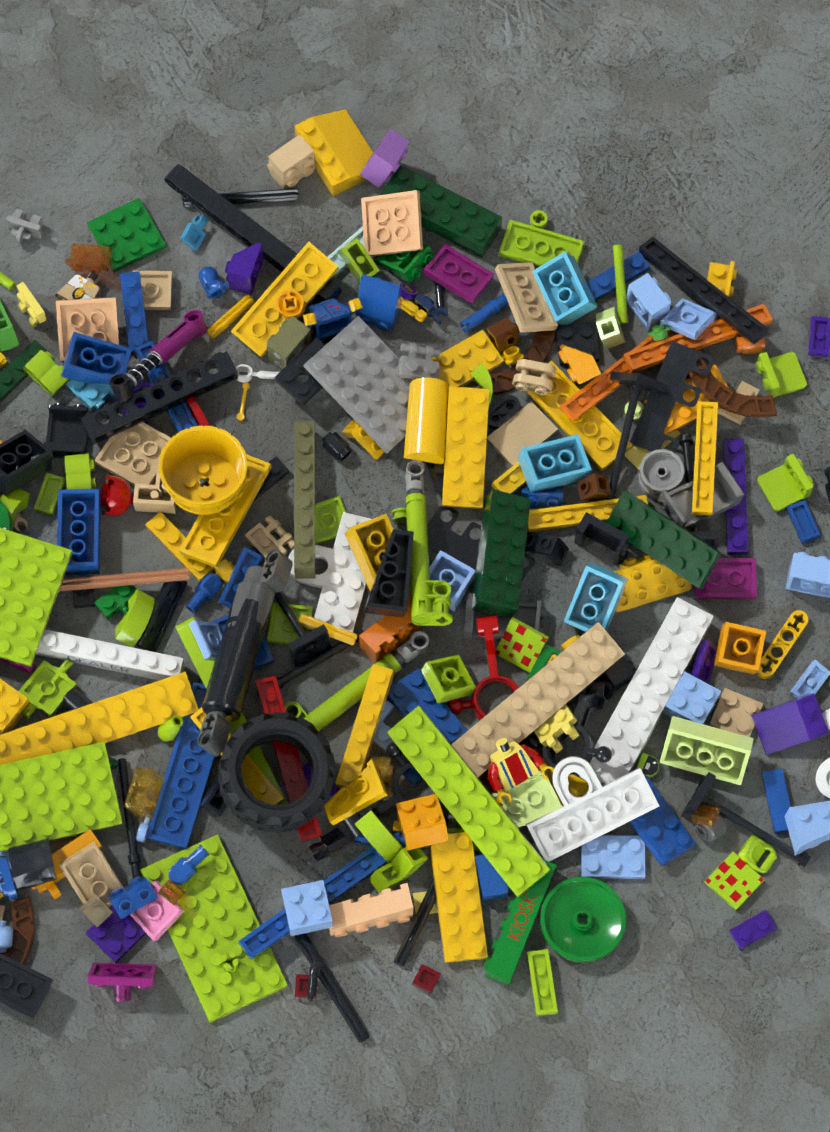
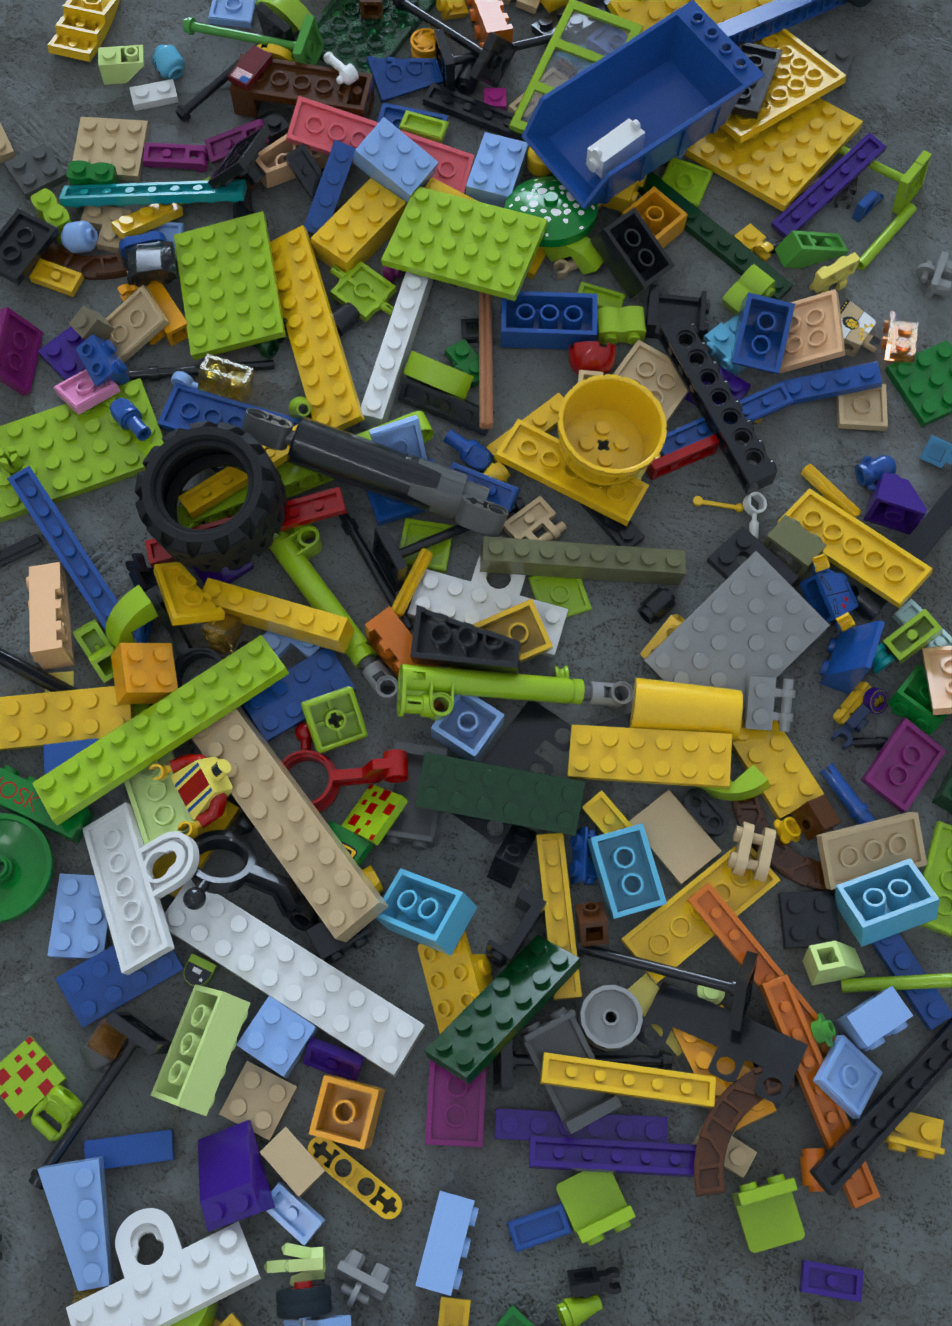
camera: 90 degrees right, 0 degrees up
(39, 952) = (56, 277): none -> yellow plate
(171, 892) = (98, 399): clear orange tile -> none
(192, 327) = (814, 445): piece -> none
(291, 304) = (844, 546): light orange wheel -> none
(307, 908) = (52, 536): light blue brick -> none
(554, 726) = (249, 848): light yellow plate -> none
(581, 364) = (772, 913): light orange slope -> none
(754, 472) = (611, 1156): none -> dark purple plate
(776, 684) = (292, 1162): none -> tan brick

